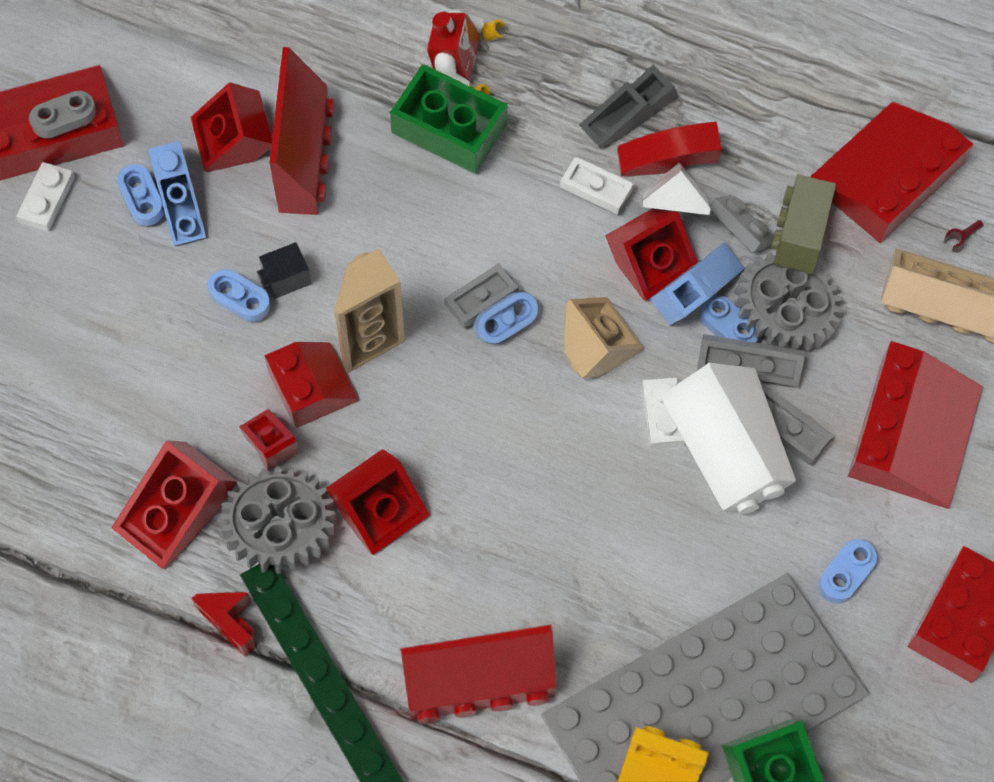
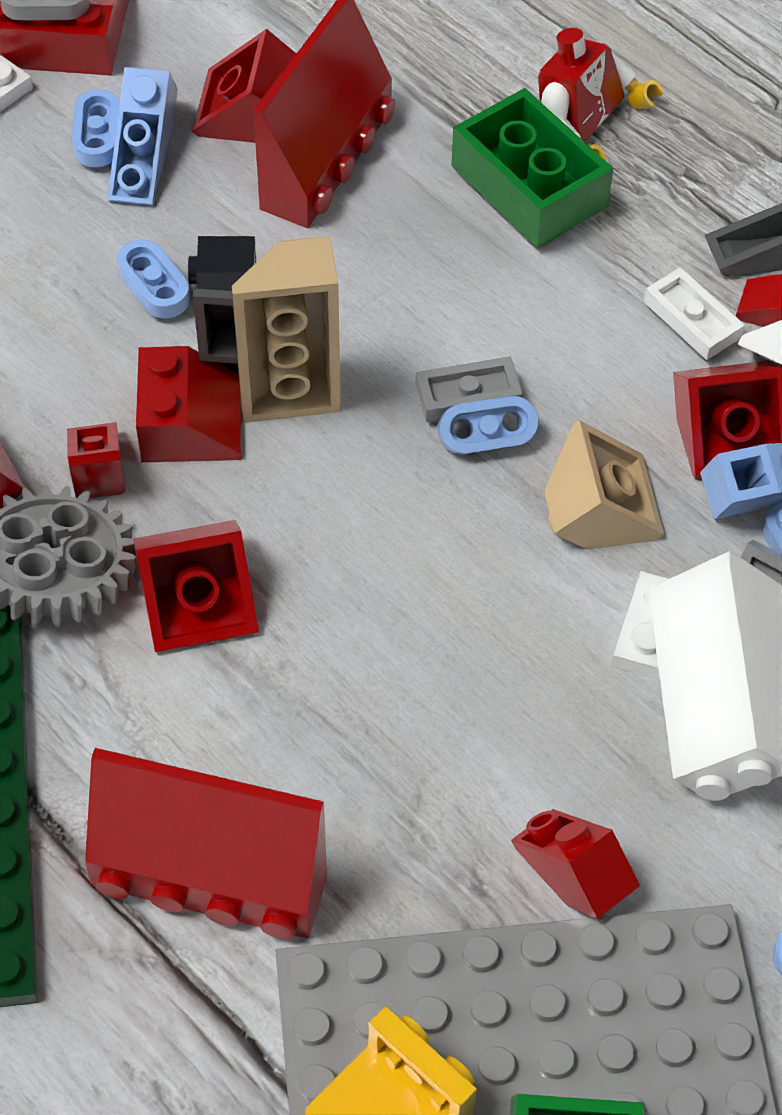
camera: 25 degrees right, 10 degrees down
(317, 323) = (216, 327): none -> dark grey slope
(689, 584) = (577, 861): none -> red slope

